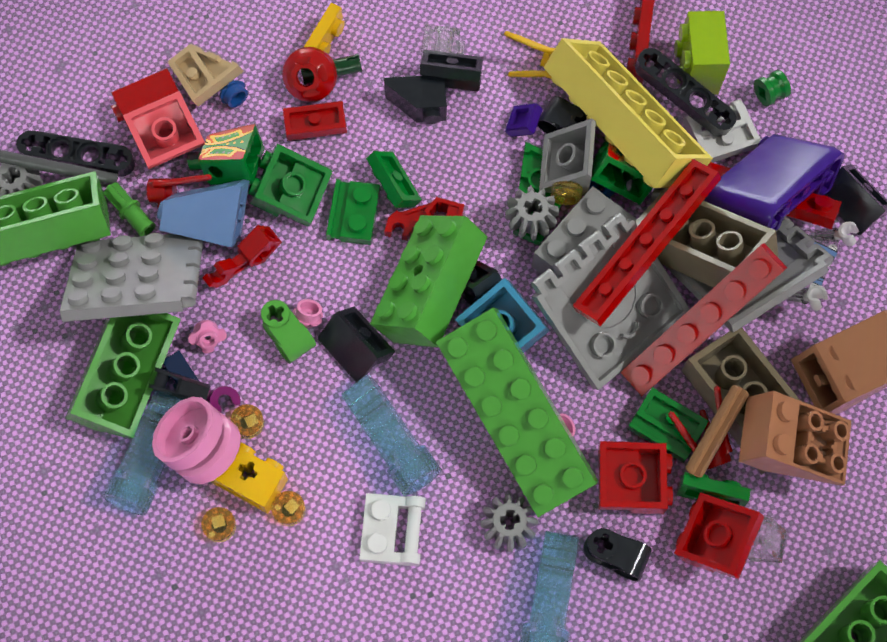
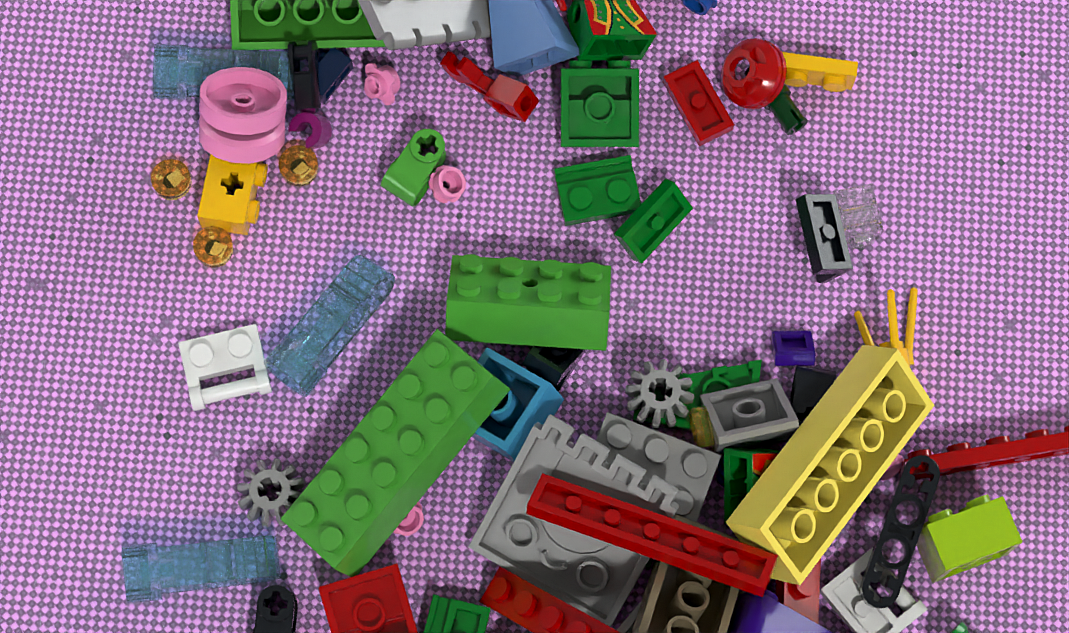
camera: 70 degrees right, 5 degrees up
(354, 343) = (429, 248): black panel -> none
(408, 218) = (629, 307): red piece -> none
(418, 97) = (775, 216): black slope -> none

